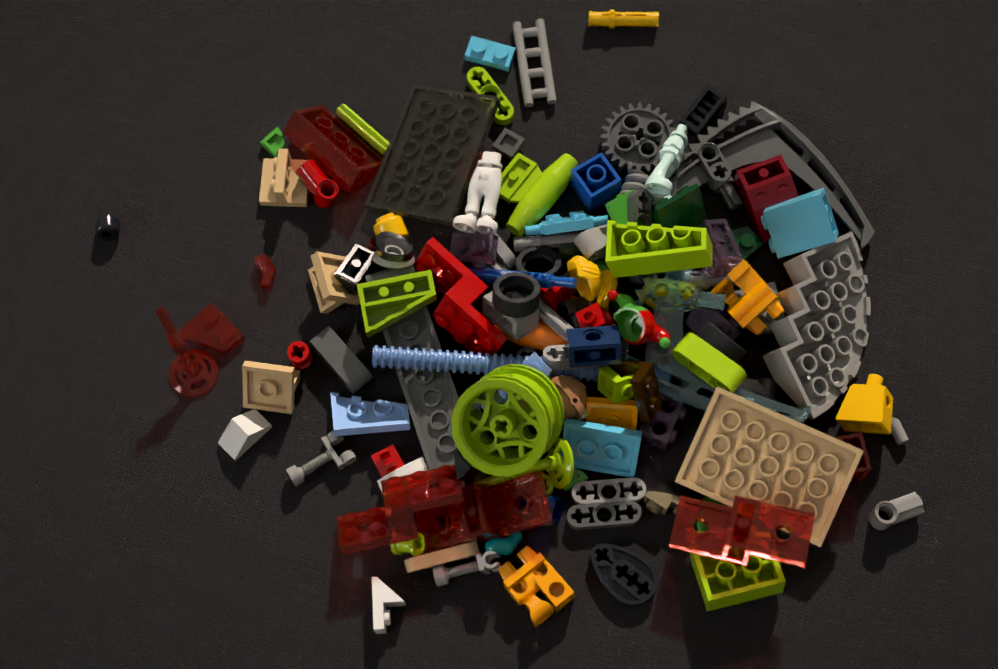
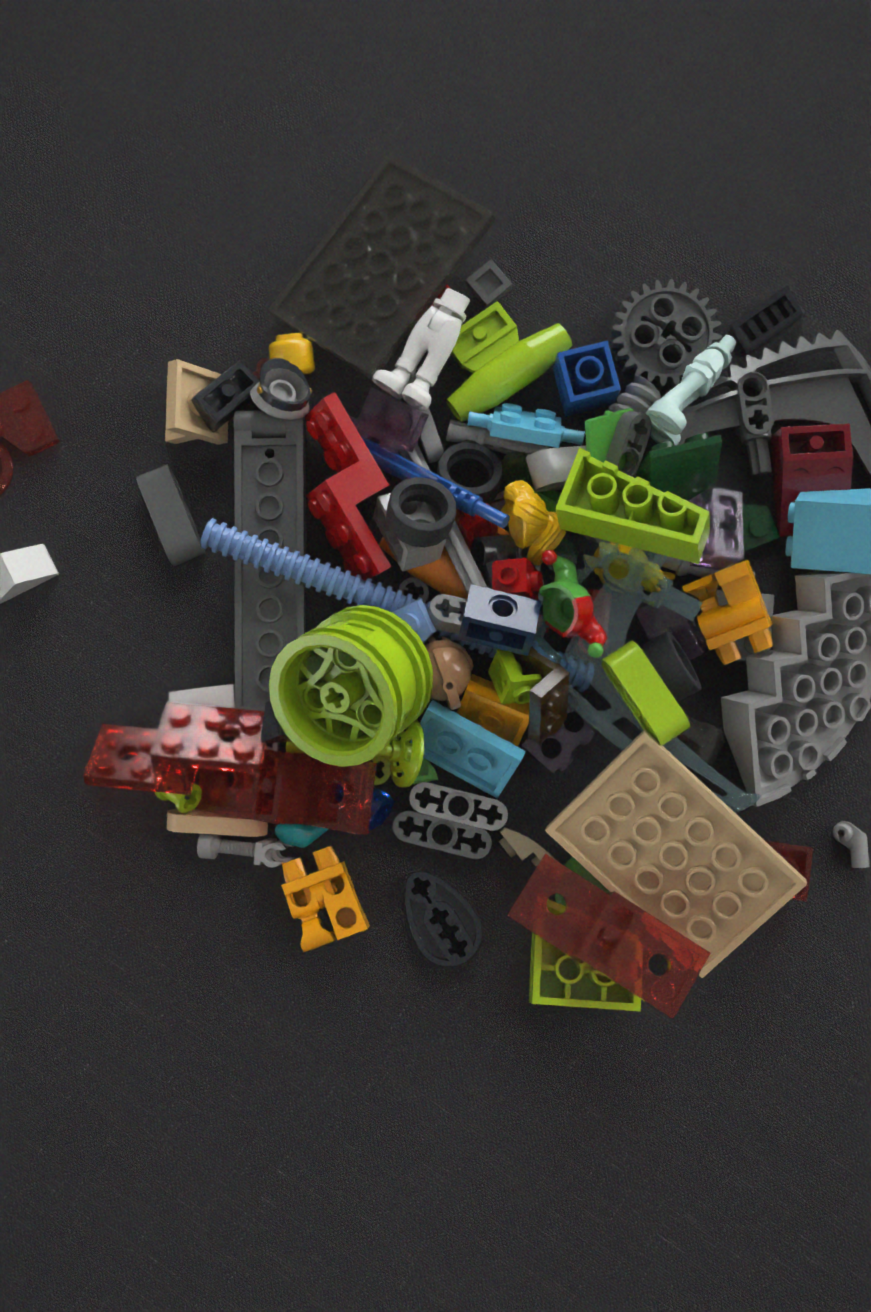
camera: 15 degrees right, 15 degrees up
(268, 269) = (115, 357): clear red arm -> none
(269, 386) = (66, 521): tan bracket -> none
(273, 142) = (178, 179): bright green tile -> none
(280, 183) = (175, 239): tan bracket -> none
(296, 348) = (110, 487): red bush -> none
(317, 182) = (214, 256): red piece -> none
(333, 147) = (252, 211): clear red slope -> none
(345, 459) = (67, 651): light grey bar -> none
(357, 416) = (174, 602): light blue wing -> none
(362, 128) = (301, 196): lime axle -> none
(383, 597) = (124, 849): white slope -> none
(387, 460) = (190, 671): red tile -> none
(394, 298) = (257, 461): lime wedge -> none
(490, 53) = (508, 143): medium azure plate -> none
(490, 85) = (492, 192): lime beam -> none
(546, 69) = (572, 193): light grey bar -> none
(623, 19) = (700, 149): yellow pin -> none
(867, 407) = (833, 810): yellow torso -> none
(897, 511) = (819, 955): light grey piece -> none

